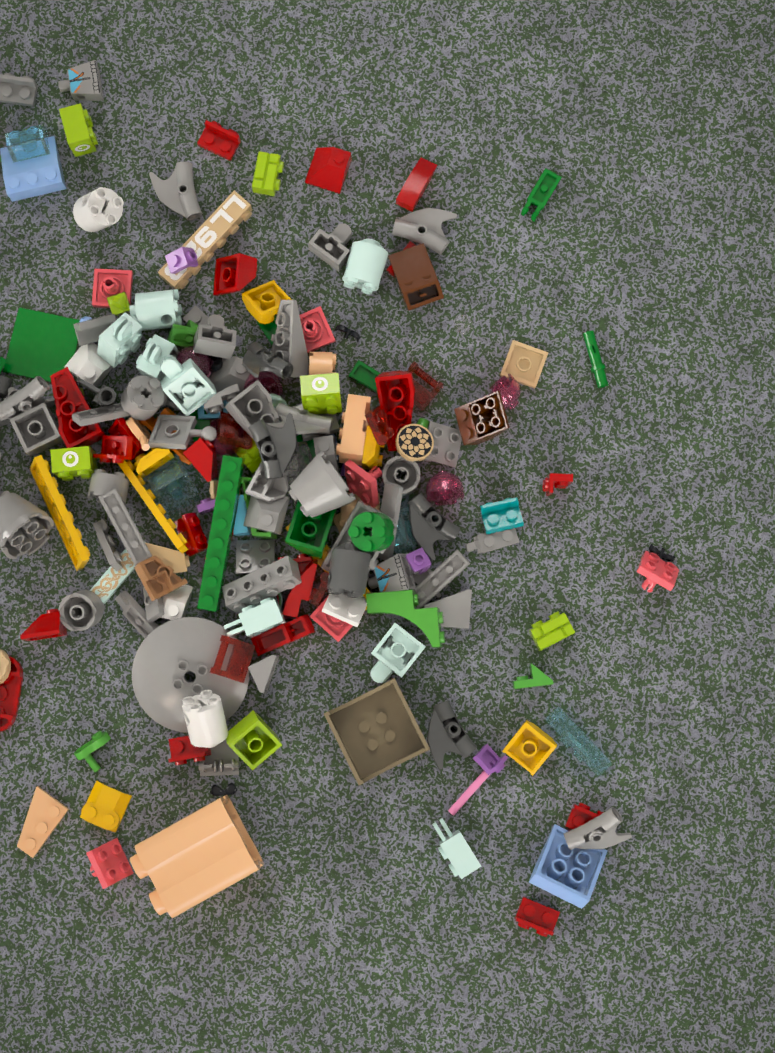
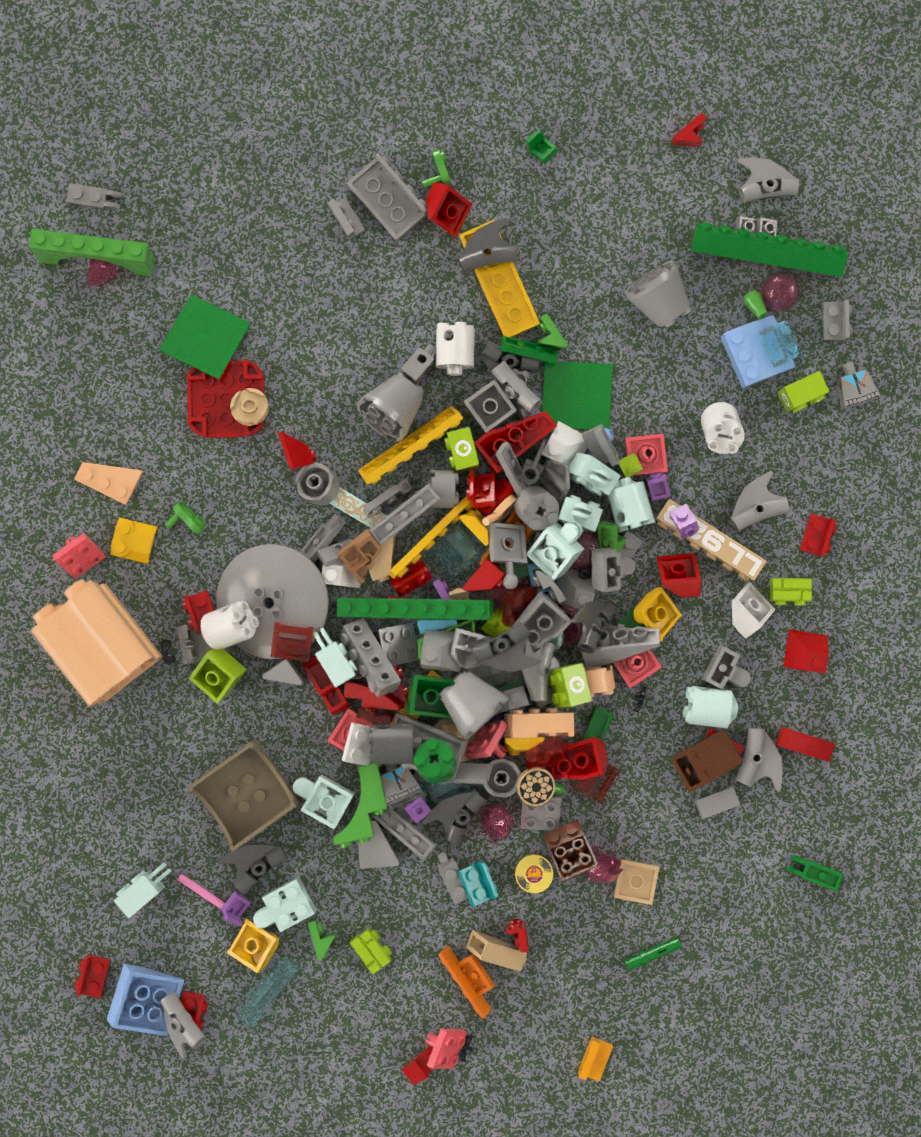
camera: 80 degrees right, 5 degrees up
(118, 375) = (556, 479): none -> light grey slope
(144, 281) = (658, 486): none -> medium lavender bracket
(280, 214) = (750, 610): none -> white slope
(459, 274) = (717, 803): none -> light grey slope
(496, 709) = (285, 907): none -> light aqua brick
(501, 460) = (534, 873): none -> light yellow tile
(570, 508) = (496, 951): none -> tan slope
(592, 537) = (470, 977): none -> orange bracket
(673, 601) = (417, 1069): none -> red slope
(689, 430) = (595, 1059): none -> light orange panel

